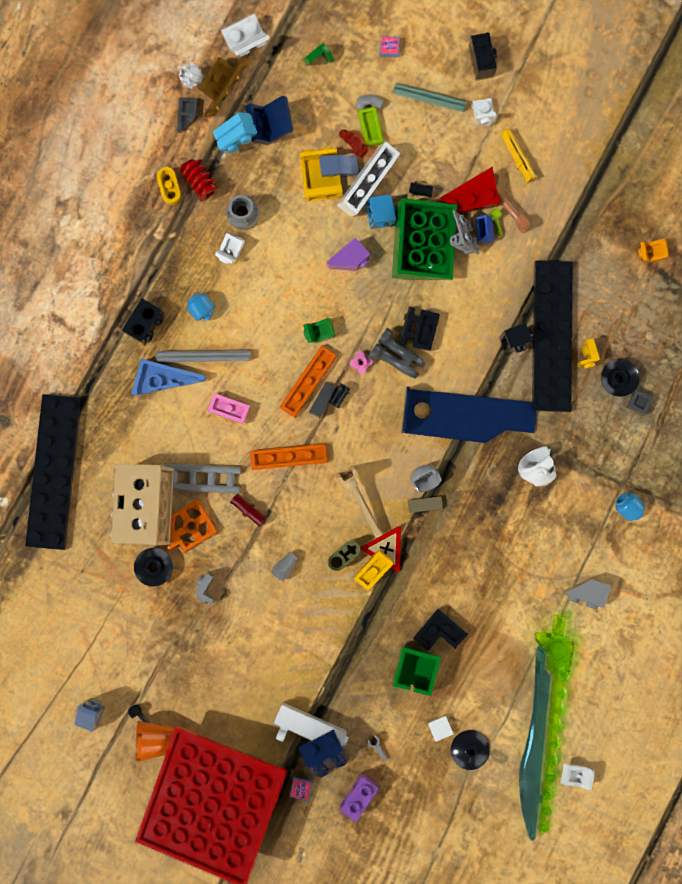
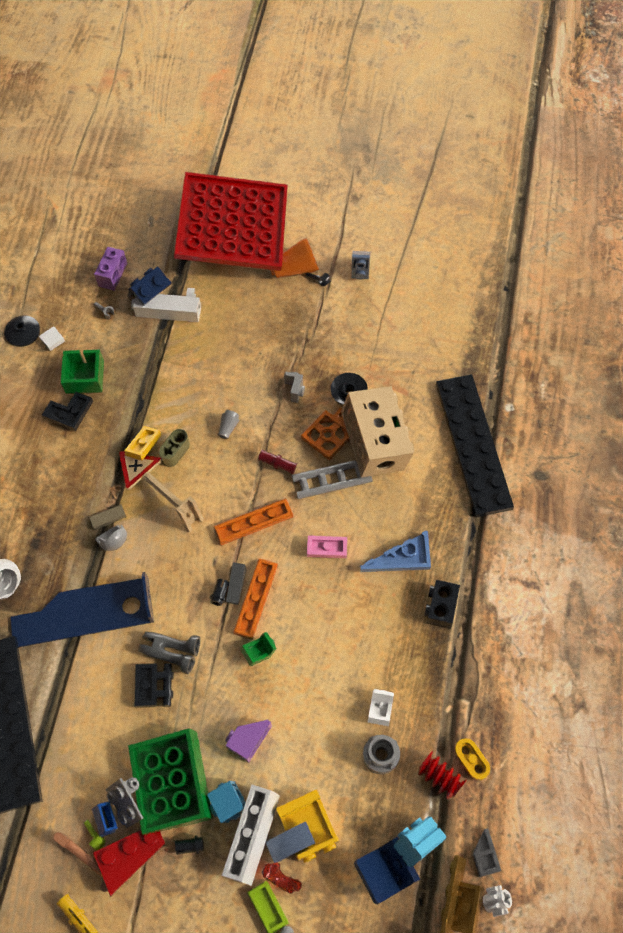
camera: 165 degrees right, 20 degrees down
(200, 306) = (390, 637): dark azure head -> none
(203, 356) = (369, 591): light grey axle -> none
(301, 788) = (164, 262): tile -> none
(361, 367) = (212, 629): bright pink plate -> none
(516, 338) = (44, 700): black brick -> none

